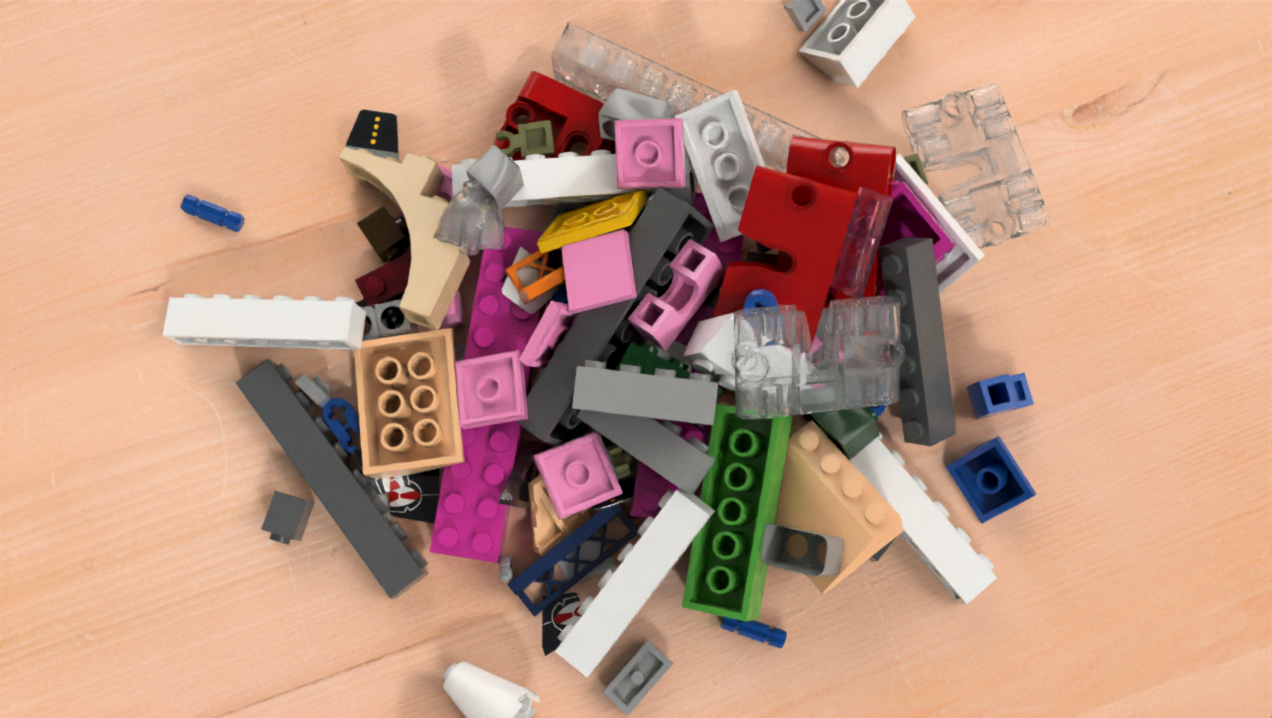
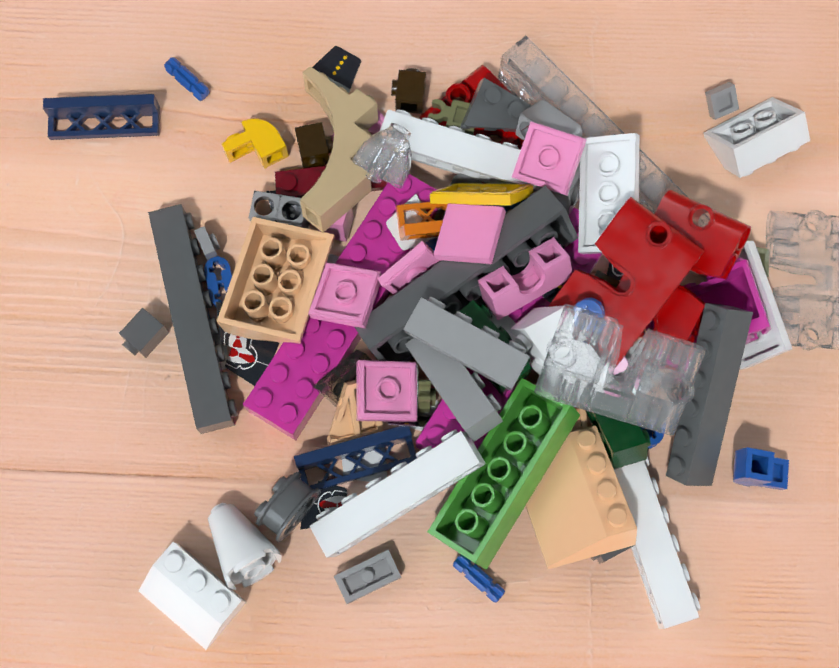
camera: 20 degrees right, 5 degrees down
(130, 284) = (102, 107): none -> dark blue fence
(264, 322) = (191, 175): white brick -> none
(319, 248) = (257, 137): none -> yellow brick
(464, 130) = (409, 90): none -> dark brown brick
(498, 175) = (421, 128): light grey piece -> none
(506, 568) = (298, 444): light grey piece -> none
(523, 641) = (287, 505): none -> dark grey wheel
(566, 118) = (493, 108): none -> dark grey wing
(775, 551) = (524, 513): light grey piece -> none
(861, 242) = (692, 292): clear pink plate -> none
(990, 479) = (726, 535): blue slope -> none

